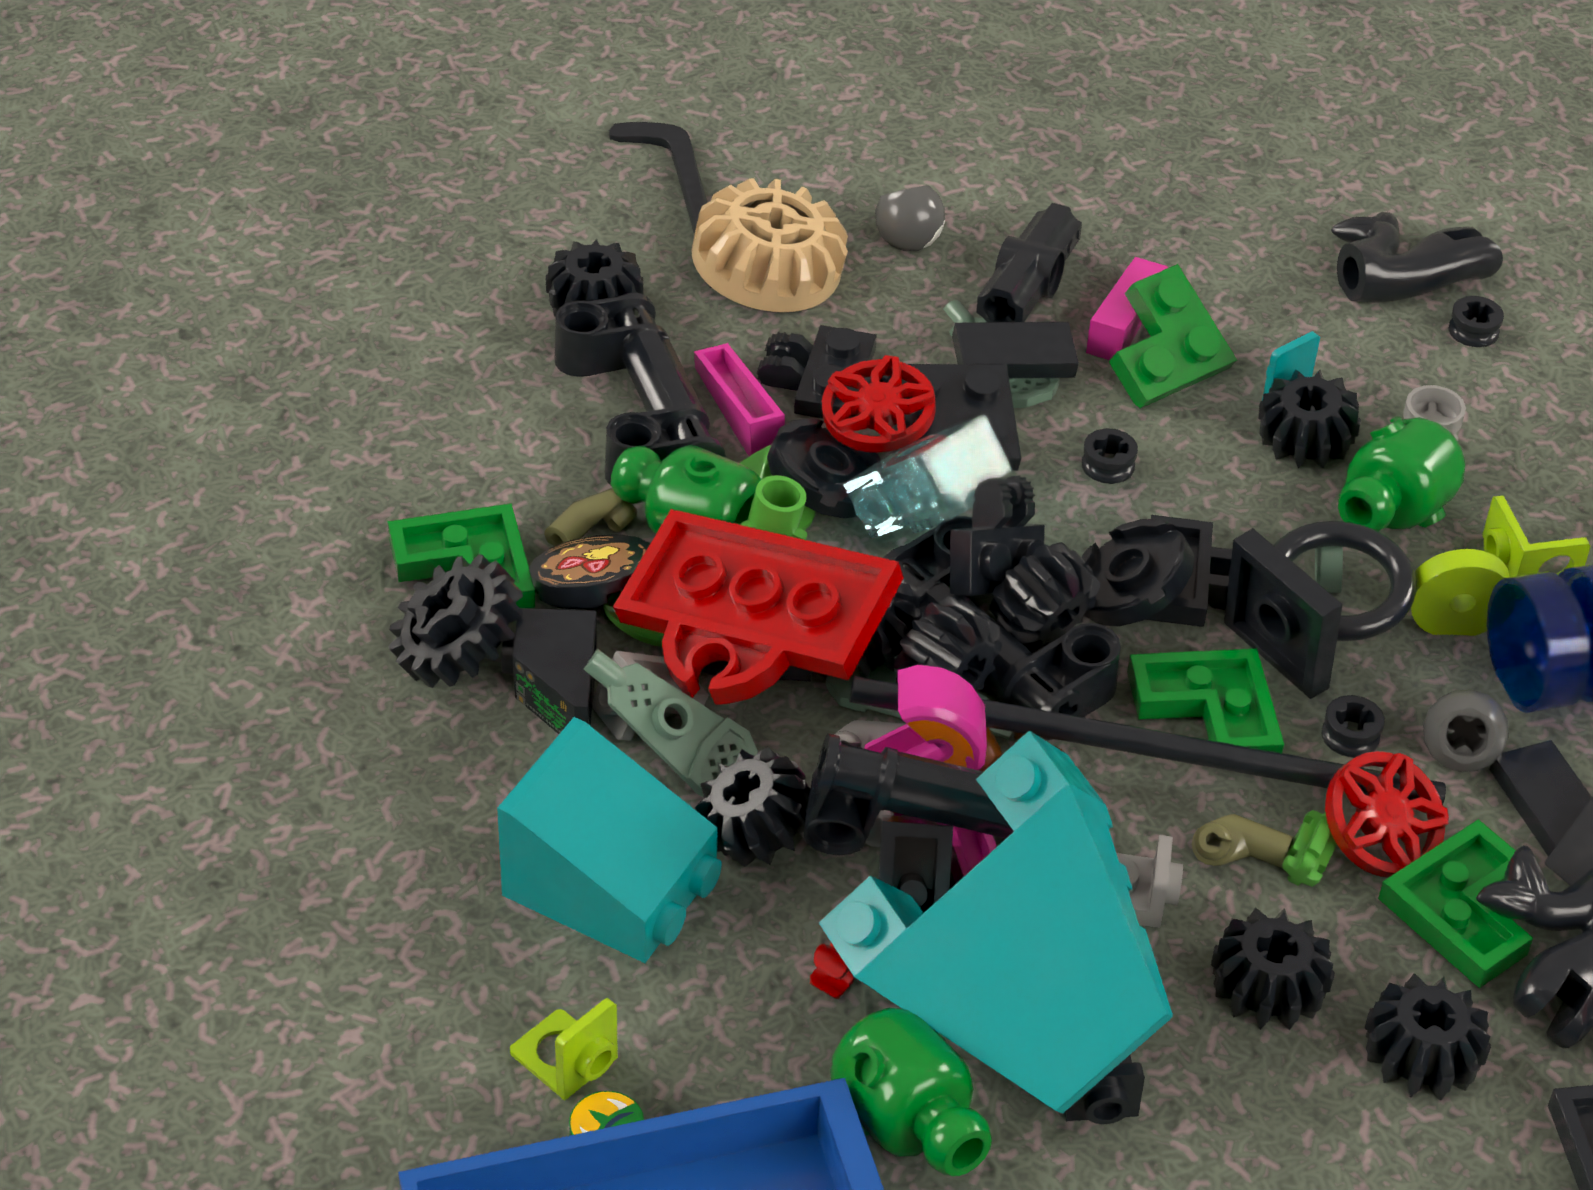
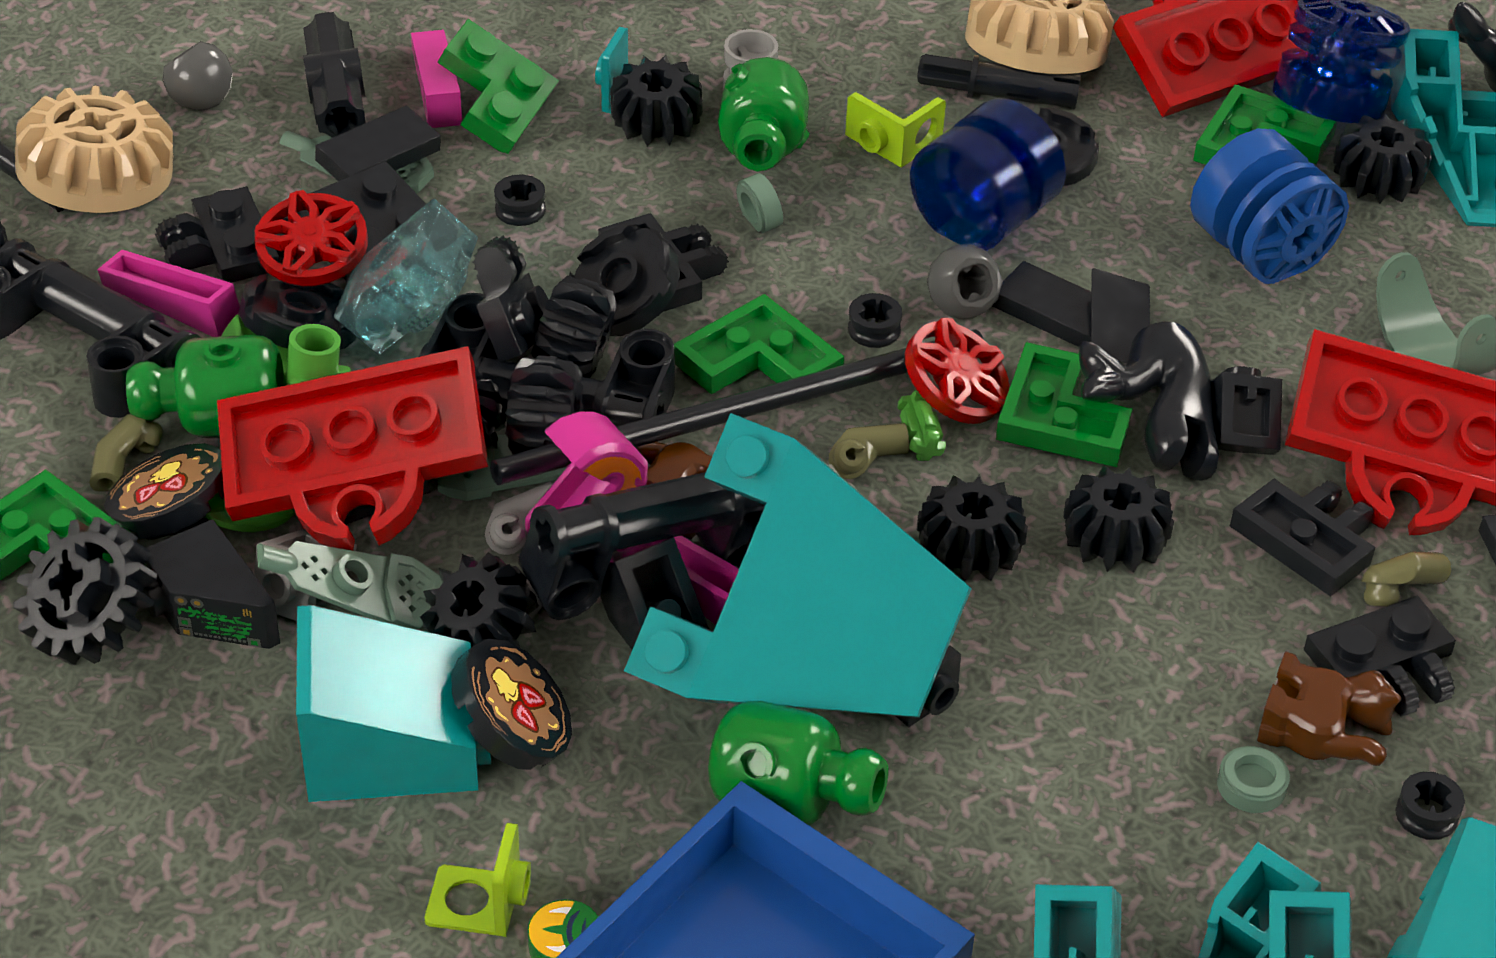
camera: 35 degrees left, 0 degrees up
(712, 901) = (512, 704): none -> tile
(831, 972) = (639, 708): red hand -> none
(1294, 617) = (776, 248): black tile -> none
(1456, 591) = (878, 180): lime piece -> none

